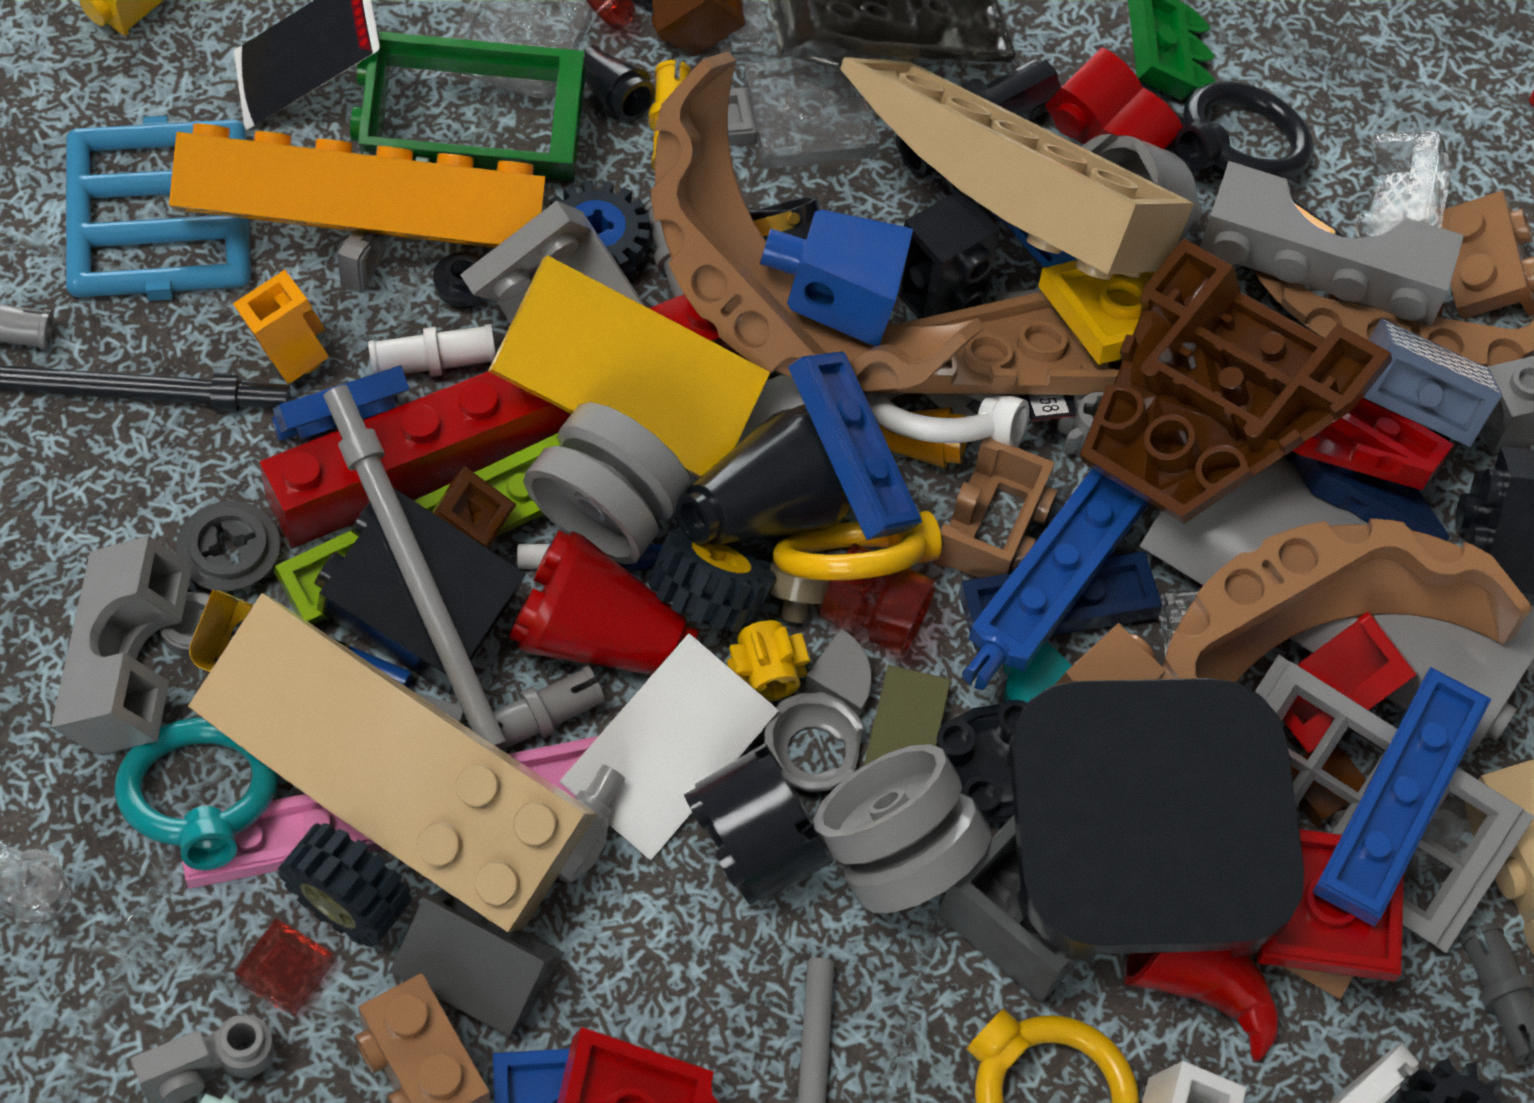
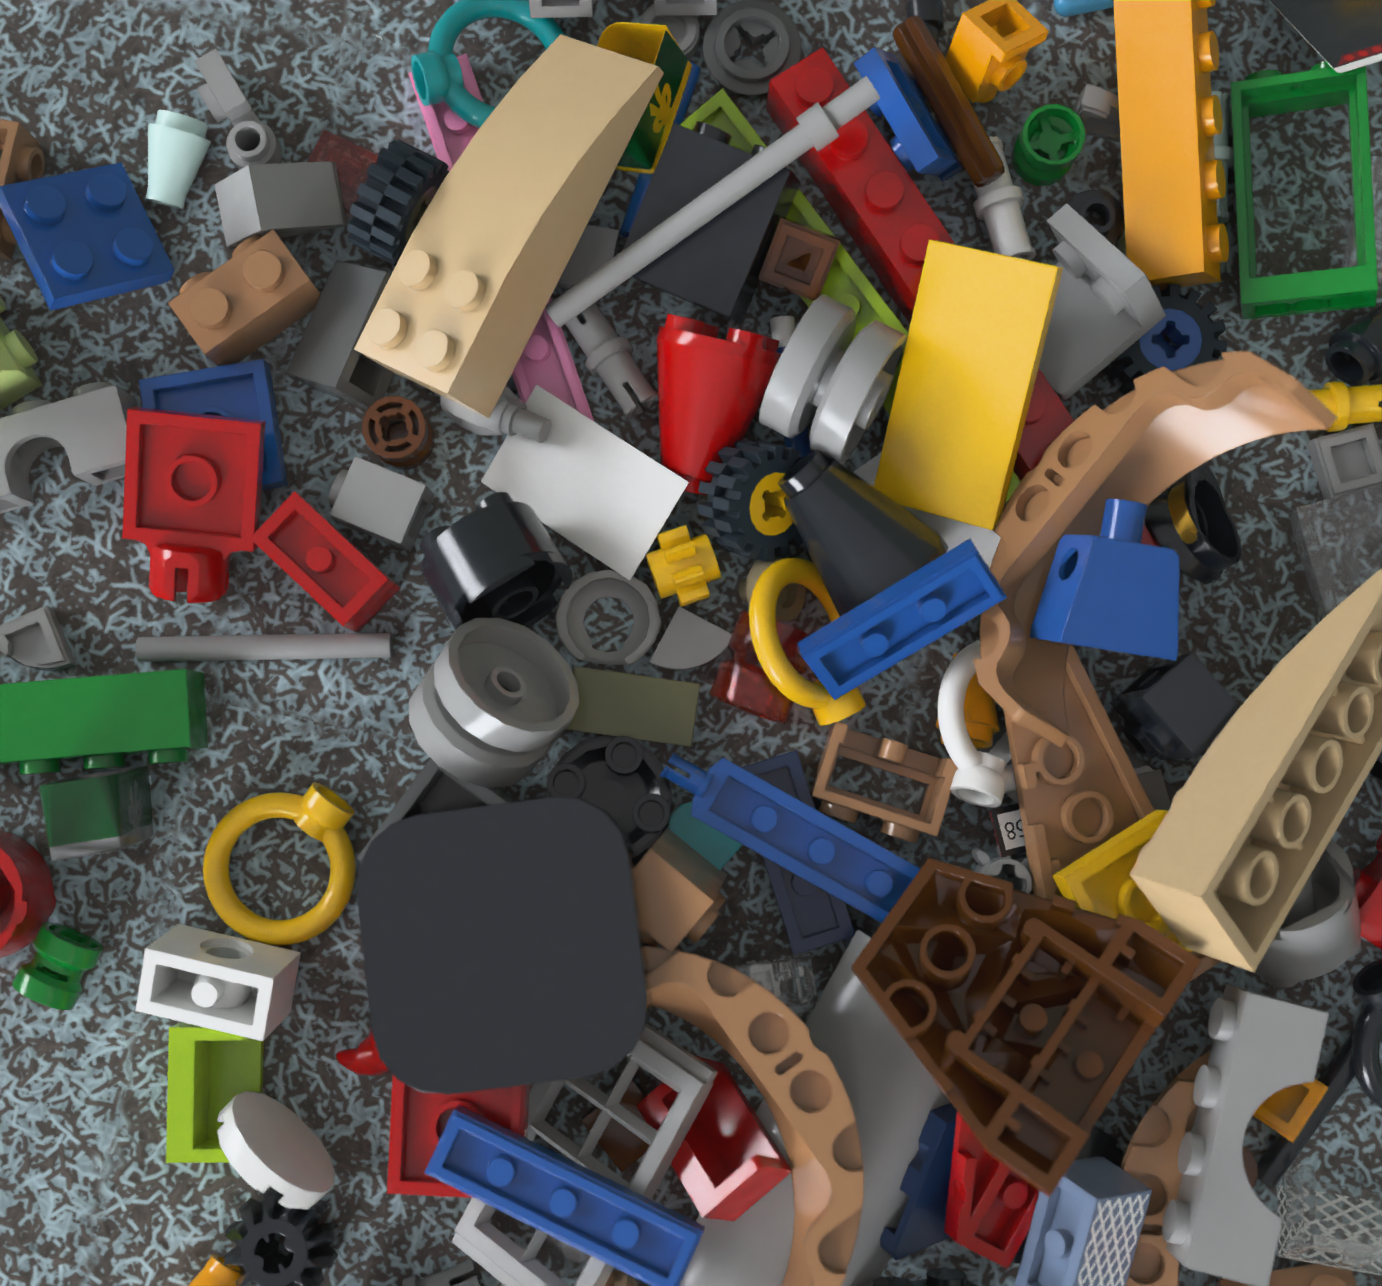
camera: 90 degrees right, 25 degrees up
(315, 1028) = (280, 197): none -> light grey slope
(328, 370) = (948, 101): none -> reddish brown axle
(384, 300) = (1053, 132): none -> green wheel
(594, 937) = (408, 442): none -> reddish brown wheel
(670, 947) = (380, 503): none -> light grey brick
(730, 999) = (325, 563): none -> red panel

